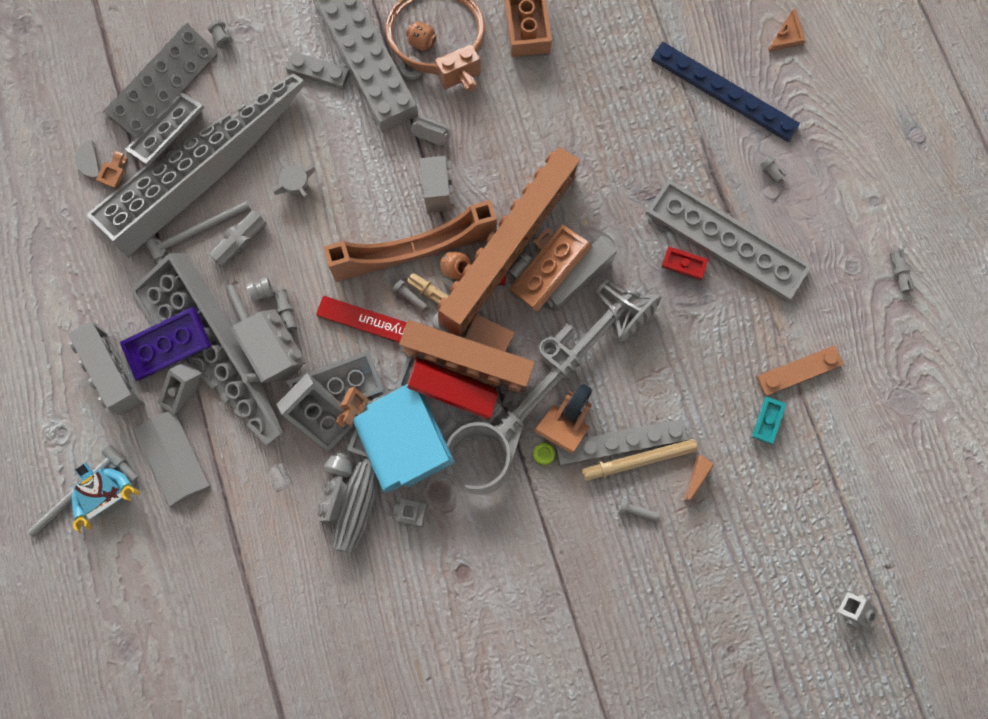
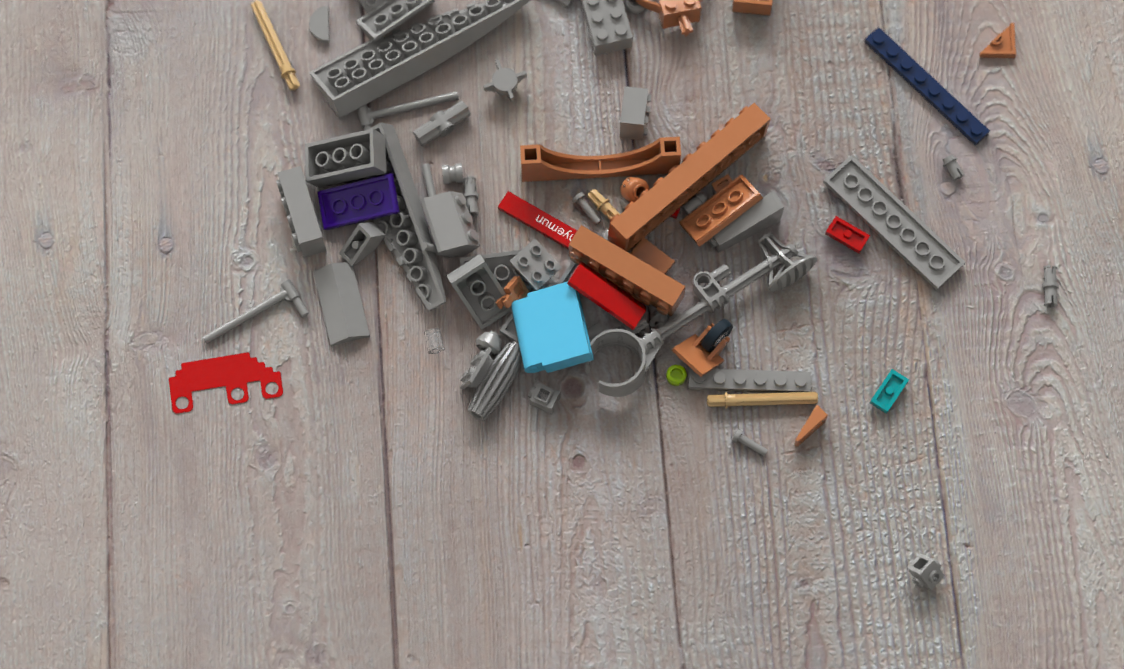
camera: 15 degrees right, 5 degrees down
(57, 563) = (227, 371): none -> red piece
(62, 219) = (287, 71): none -> tan axle
(97, 492) = (272, 316): torso -> none
(112, 173) = (341, 40): nougat plate -> none
(140, 300) = (345, 158): none -> light grey brick
(368, 370) = (535, 264): none -> light grey hinge
(430, 130) = (640, 63): light grey piece -> none
(799, 371) = (930, 354): nougat plate -> none

